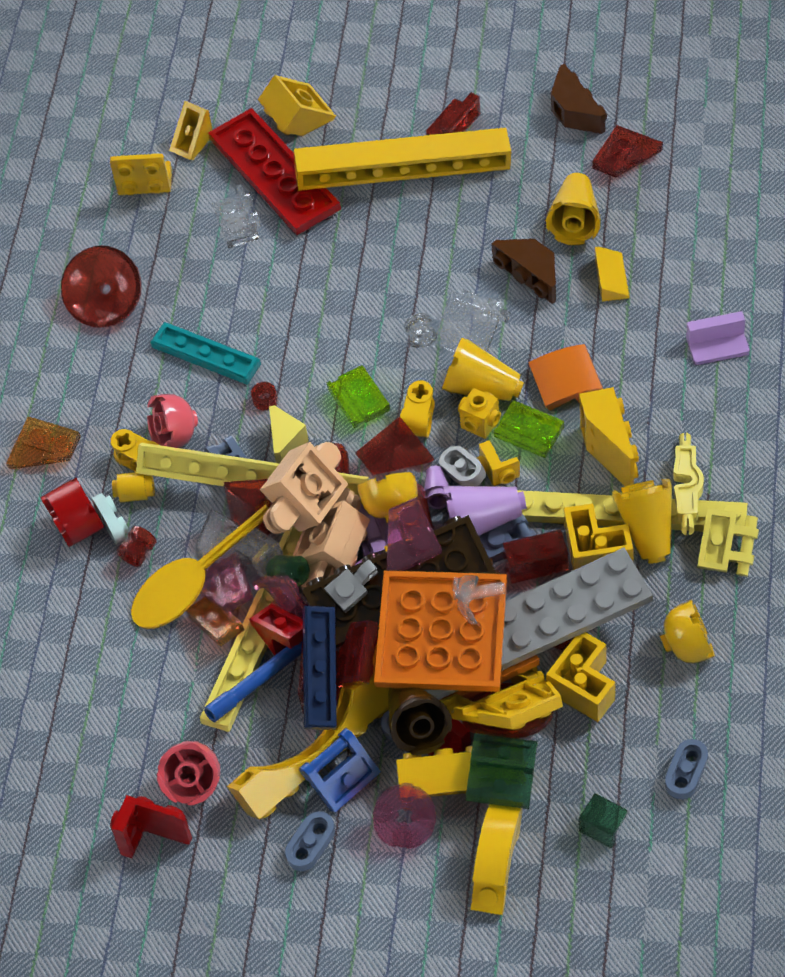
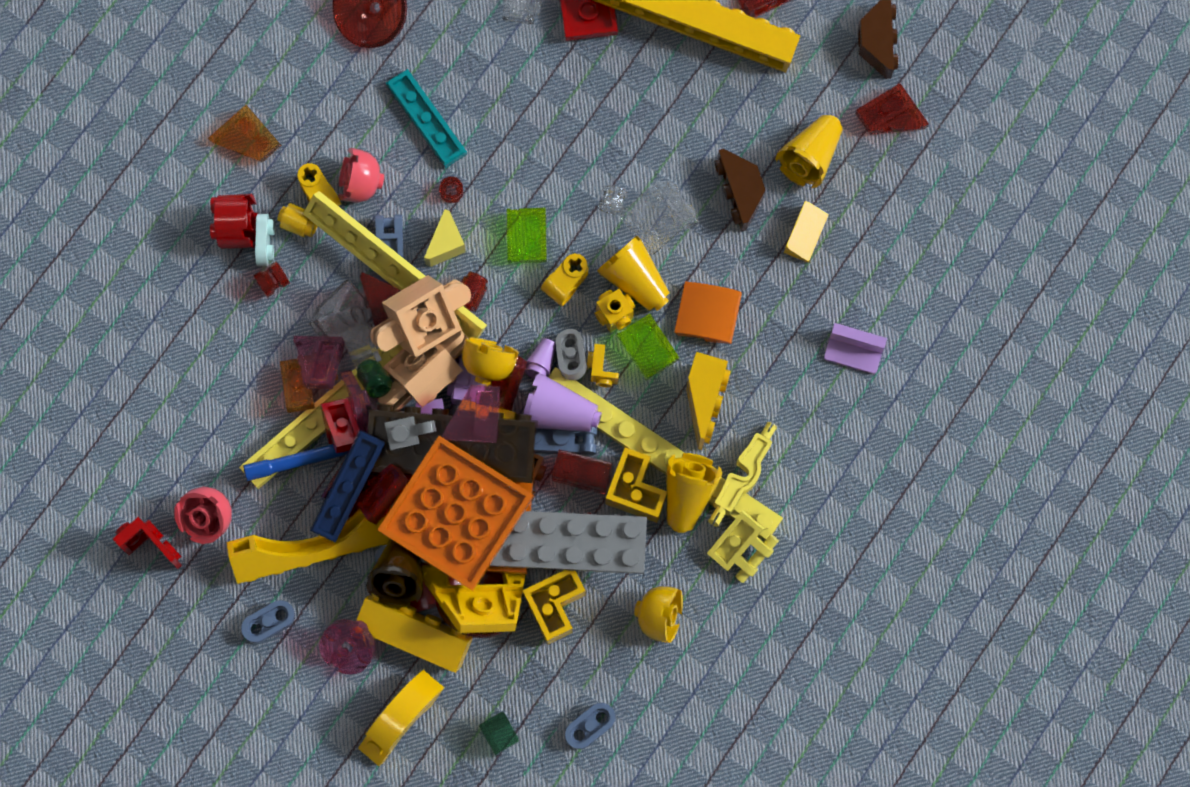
camera: 20 degrees right, 20 degrees up
(179, 583) = (284, 335): yellow piece -> none
(345, 778) = (323, 584): blue plate -> none
(393, 450) = (526, 304): clear red wing -> none
(466, 590) = (489, 498): clear plant -> none
(501, 771) = (439, 655): clear green slope -> none

